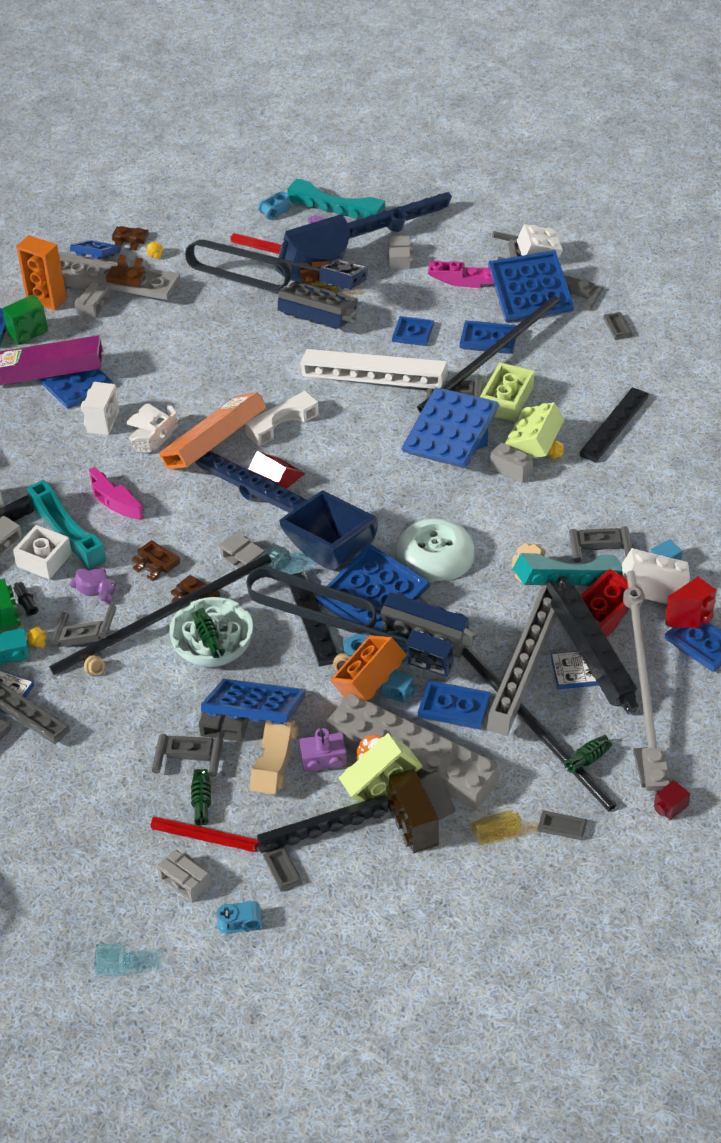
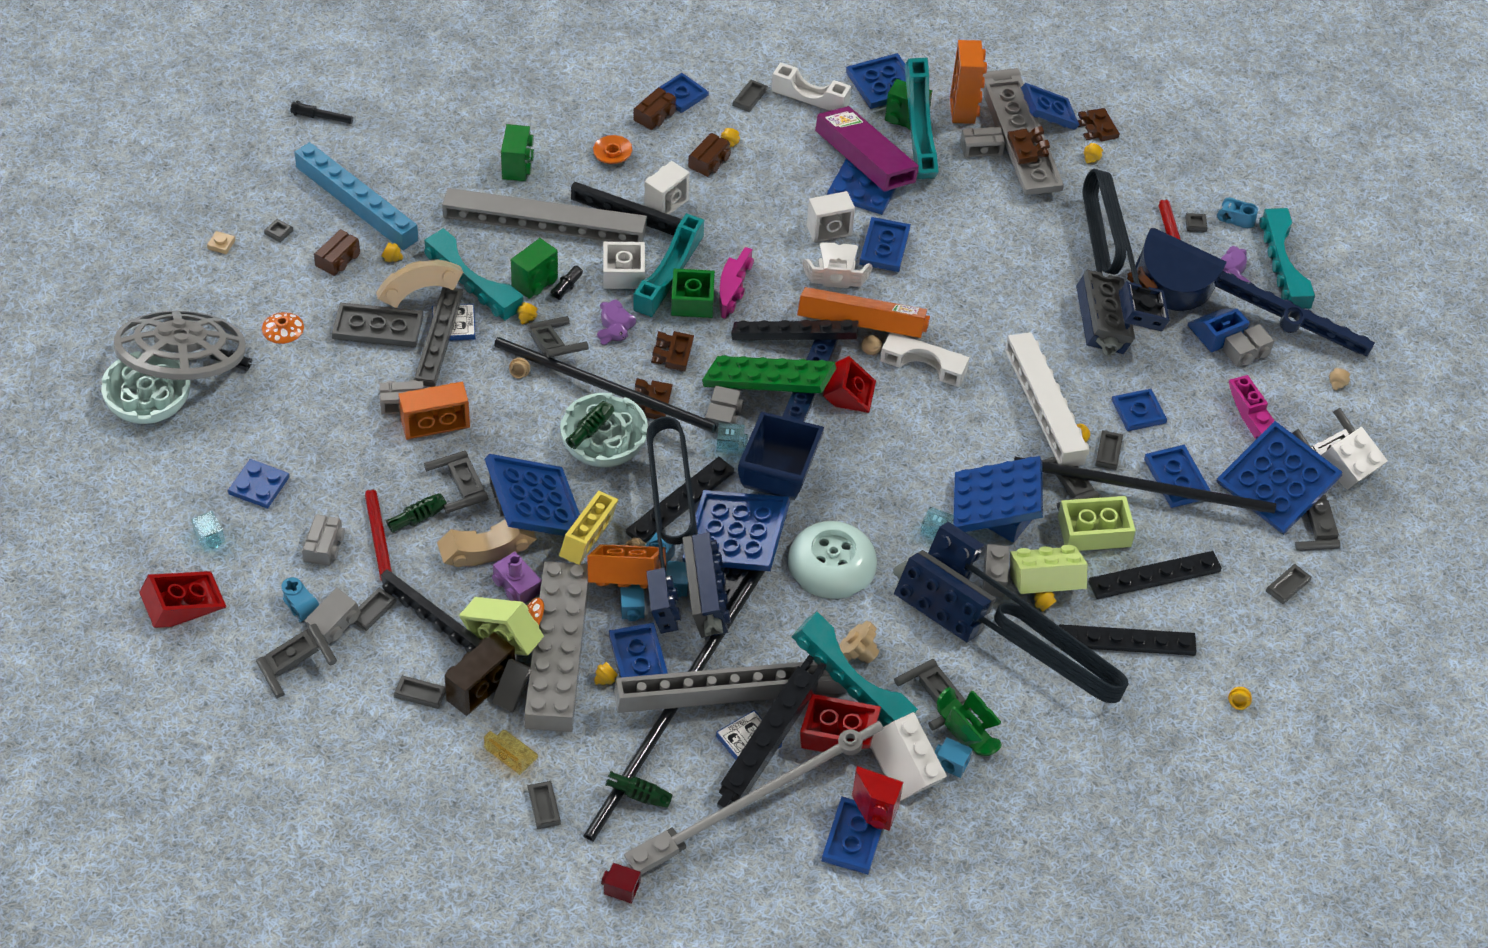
camera: 55 degrees right, 5 degrees up
(27, 291) = (919, 113): none -> teal arch
(64, 757) = (389, 394): none -> light grey brick
(79, 903) = (258, 483): none -> plate
(103, 736) = (434, 410): none -> orange brick
(109, 520) = (692, 293): none -> green brick
(146, 389) = (885, 244): none -> blue plate
(174, 1011) = (180, 597): none -> red slope
(198, 477) = (795, 330): none -> black plate
(236, 506) = (769, 374): none -> green plate
(242, 443) = (871, 345): none -> tan plate
(263, 230) = (1196, 222): none -> dark grey tile
(278, 896) = (334, 615): none -> light grey brick
(298, 943) = (291, 654): none -> dark grey plate
(313, 677) = (588, 527): none -> light yellow brick
(374, 255) = (1218, 325): none -> blue slope
(394, 867) = (420, 692): none -> dark grey tile
(432, 354) = (1109, 450): none -> dark grey tile
(446, 477) = (932, 521): none -> clear light blue brick
(458, 732) = (605, 674): none -> yellow plate
(460, 225) = (1339, 378): none -> tan plate
(537, 490) = (941, 590): none -> piece
(568, 381) = (1154, 574): none -> black plate
(650, 533) = (957, 723): none -> green piece
(701, 389) = (1240, 698): none -> yellow plate

